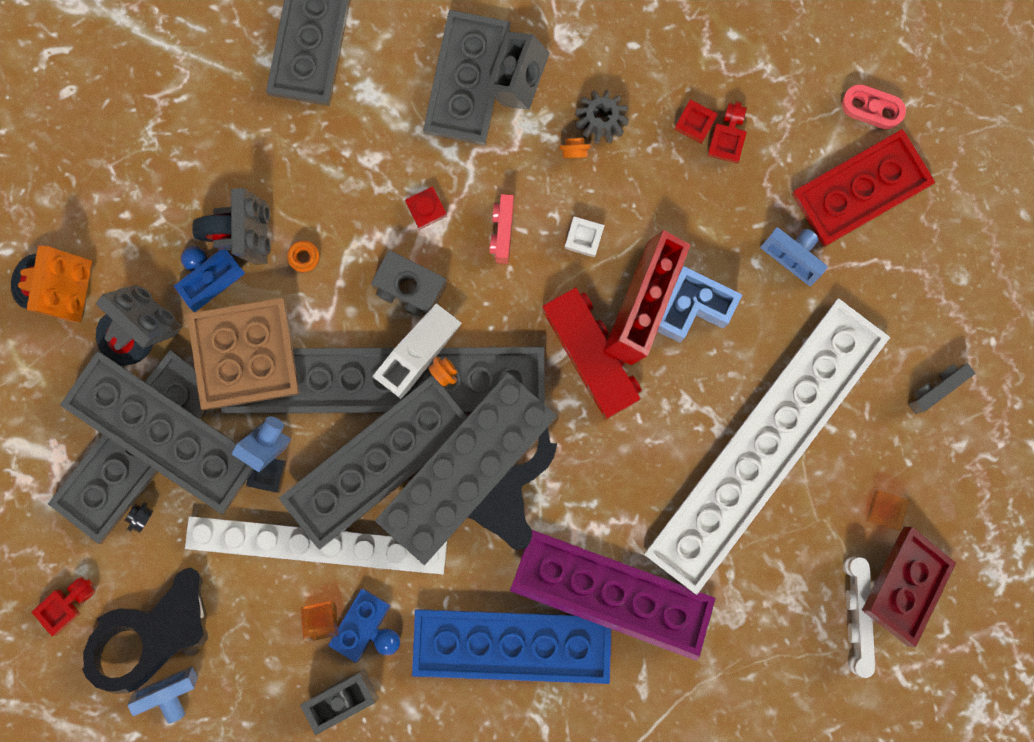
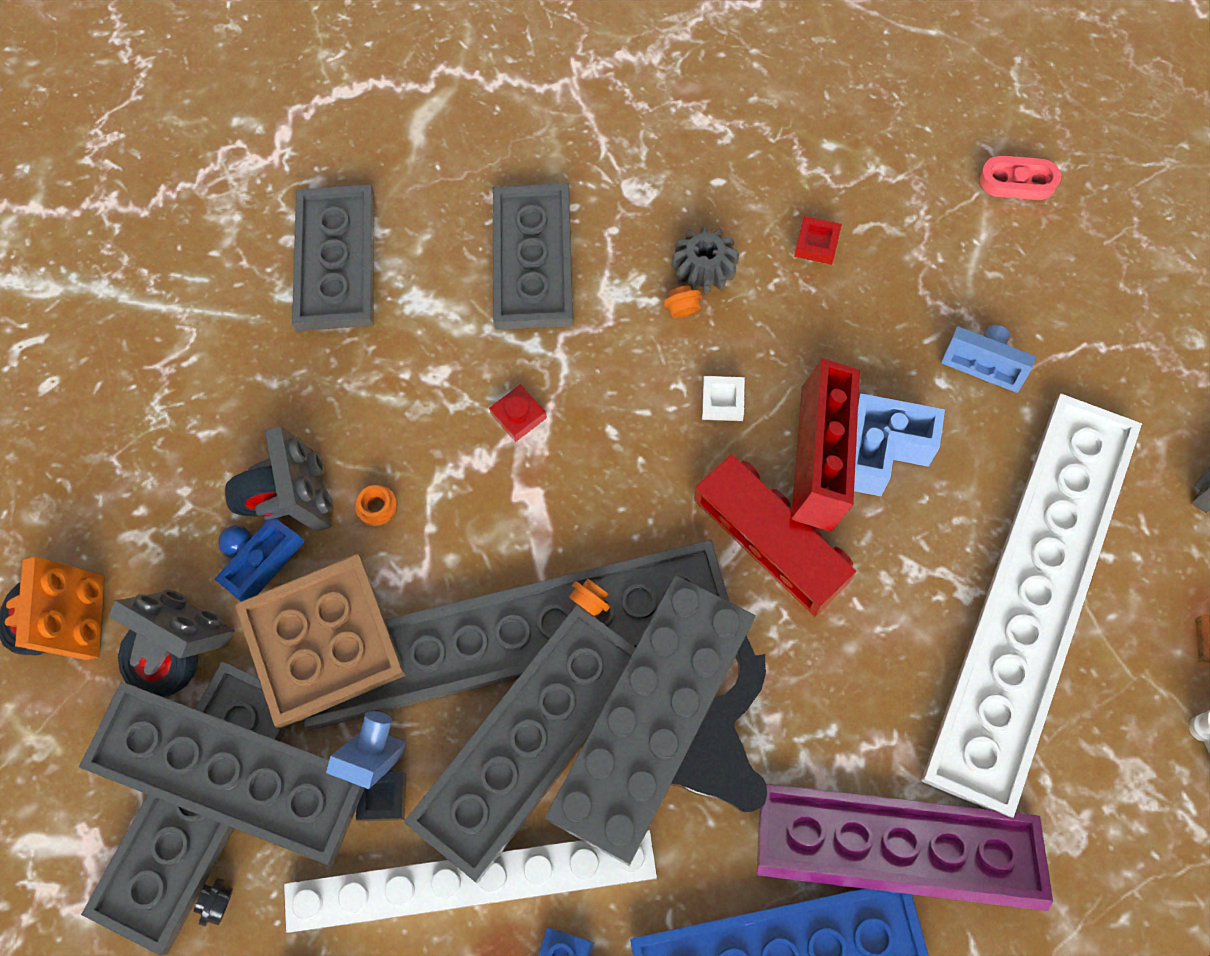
camera: 10 degrees left, 15 degrees down
(395, 270) = (501, 488): dark grey brick -> none
(416, 351) = (546, 583): white slope -> none
(503, 216) = (622, 427): coral plate -> none
(517, 70) = (591, 230): dark grey brick -> none
(727, 140) = (861, 248): red plate -> none
(863, 188) = (1041, 266): red plate -> none

